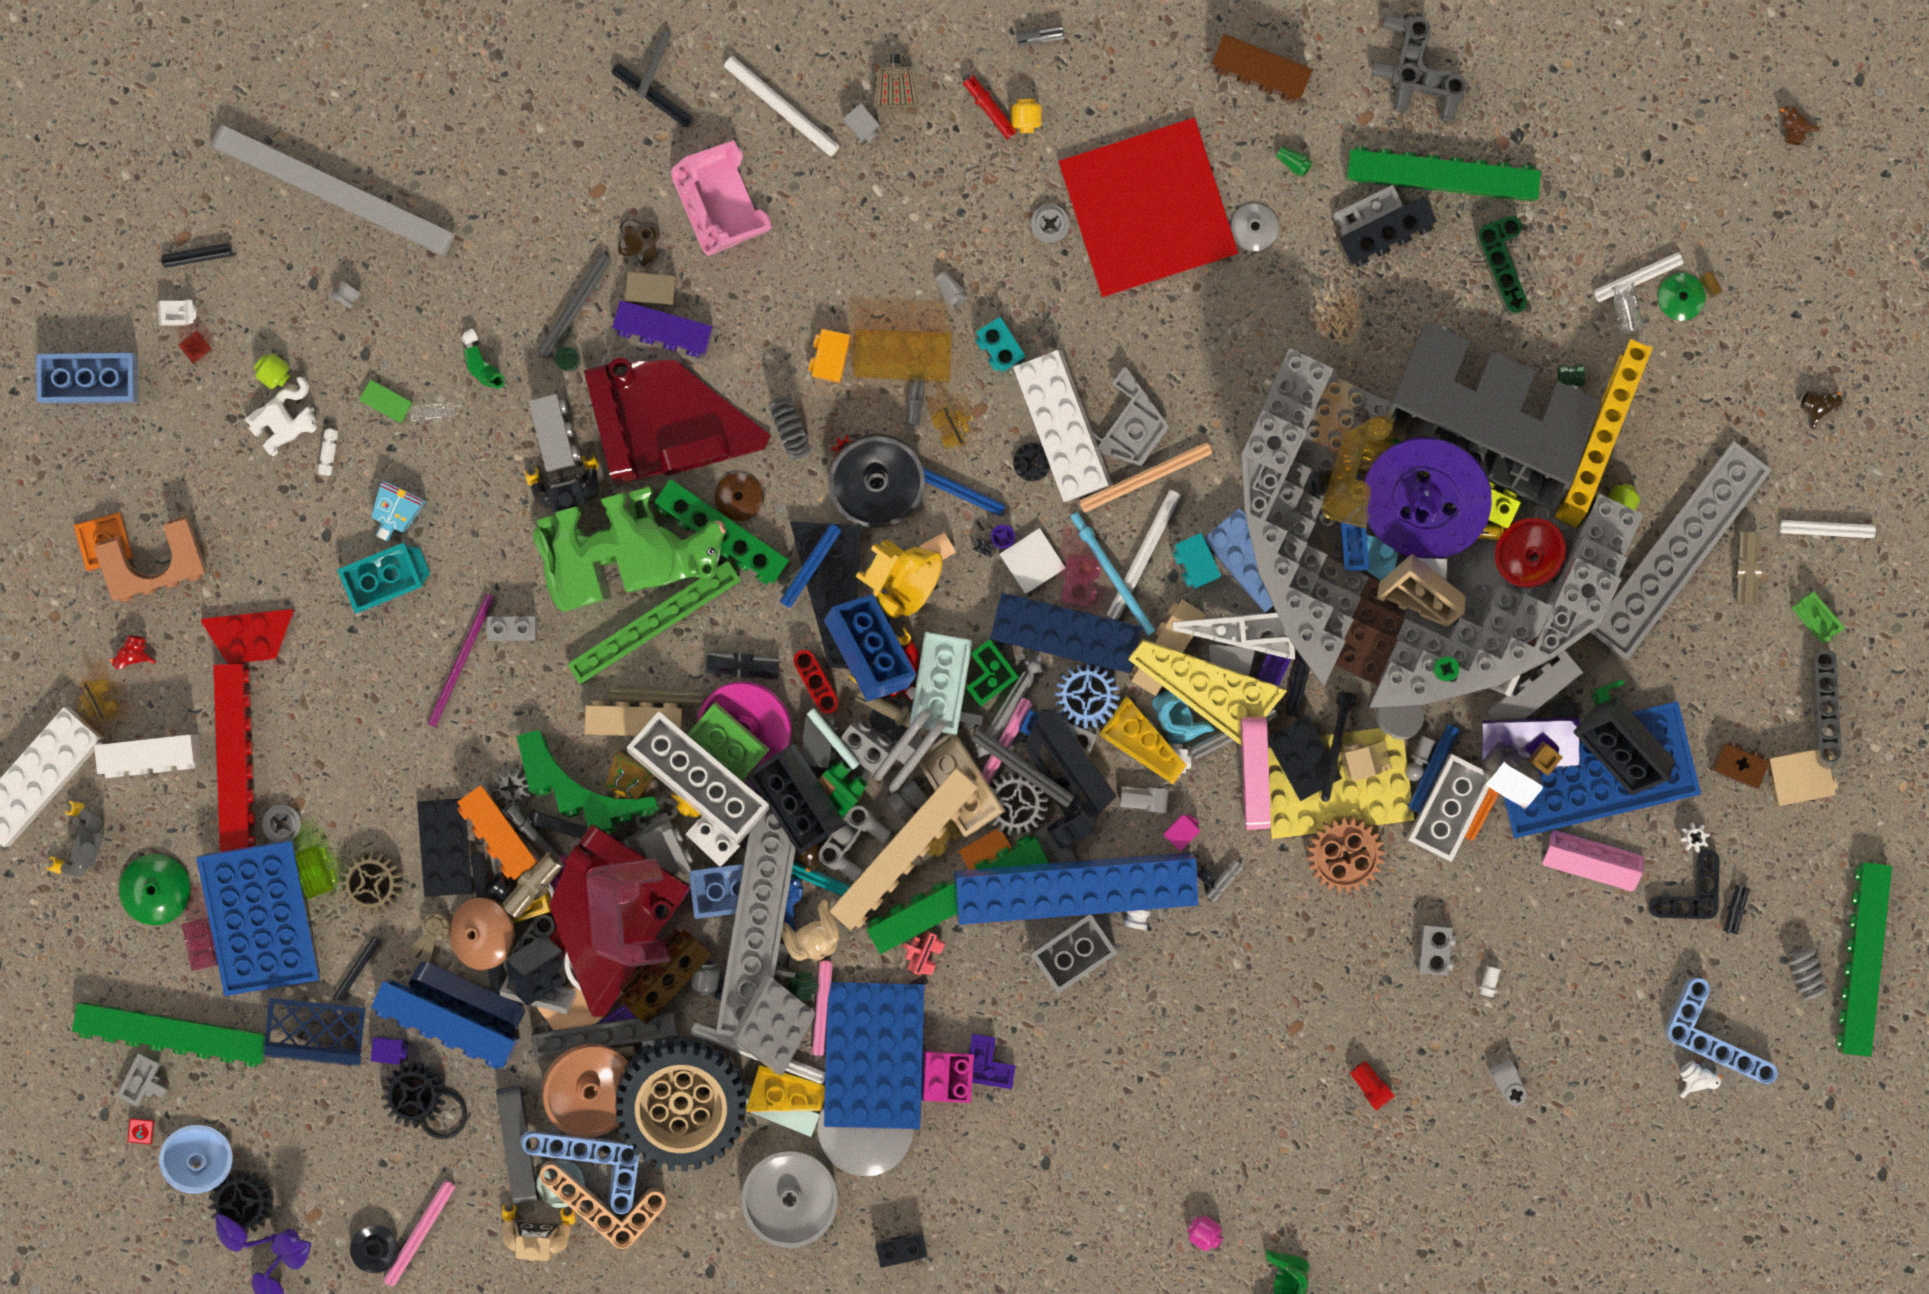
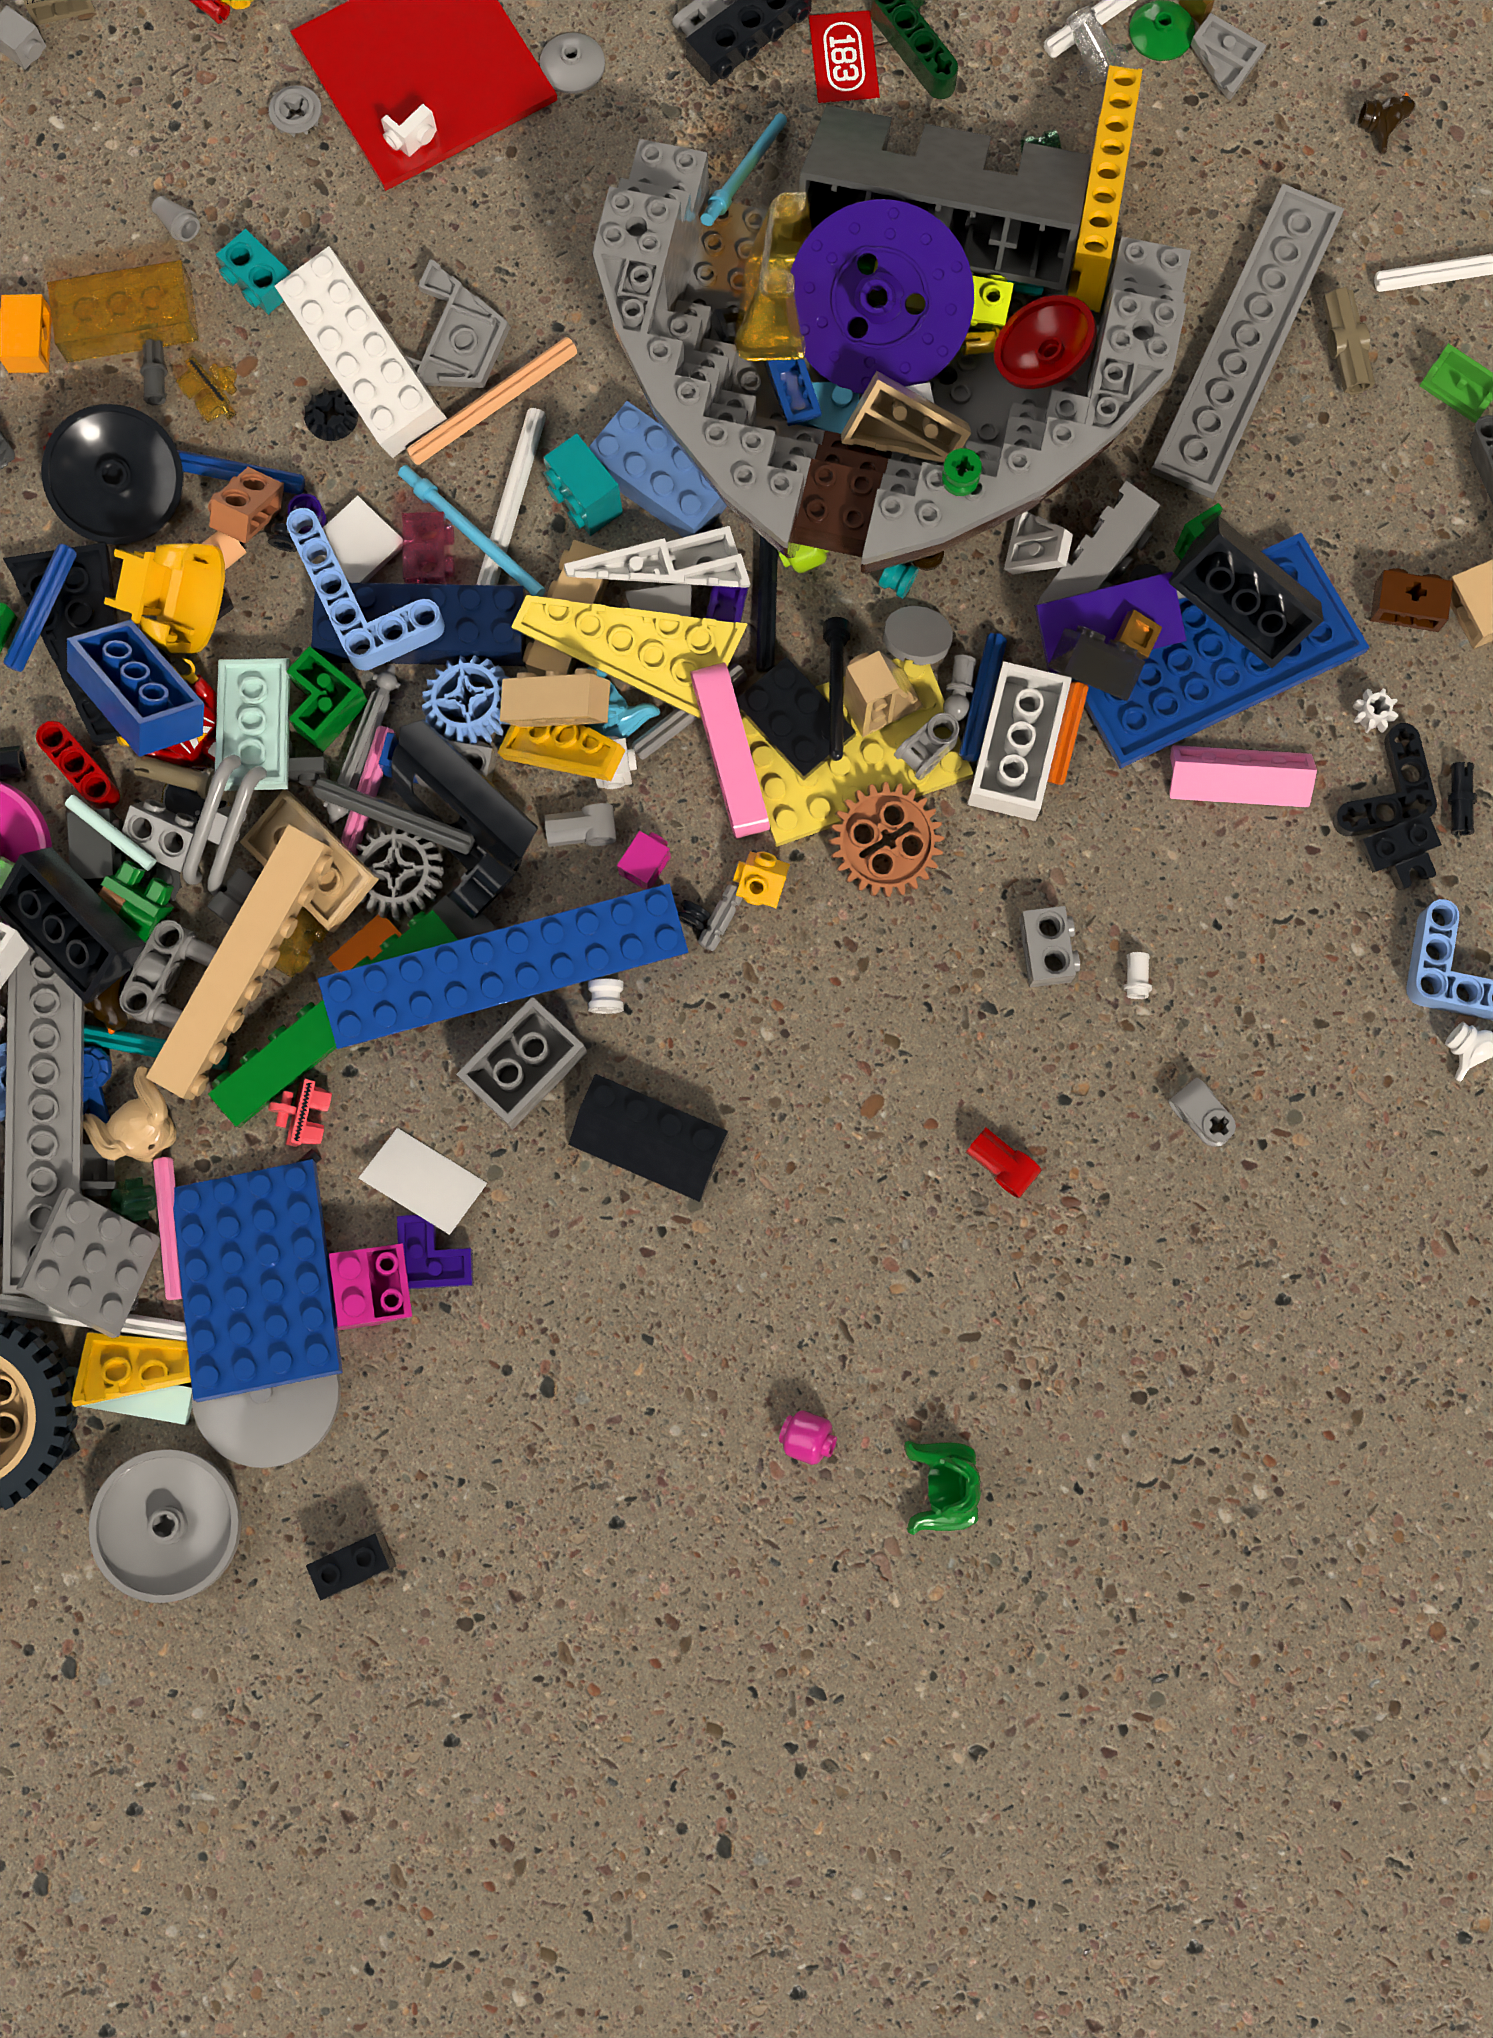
camera: 15 degrees left, 10 degrees down
(966, 519) = (245, 505): none -> nougat brick
(992, 1013) = (423, 1181): none -> white sticker
(1022, 618) = (344, 603): none -> light blue beam
(1135, 267) = (412, 133): none -> white bracket
(1144, 1019) = (648, 1137): none -> black slope
(1147, 717) = (555, 699): none -> tan brick
(1257, 863) = (761, 879): none -> yellow brick
(1336, 386) = (722, 198): none -> medium azure bar
(1387, 800) = (925, 750): none -> light grey piece
(1449, 266) = (844, 56): none -> red sticker
(1686, 936) = (1403, 849): none -> black plate
(1721, 329) = (1226, 53): none -> light grey wing

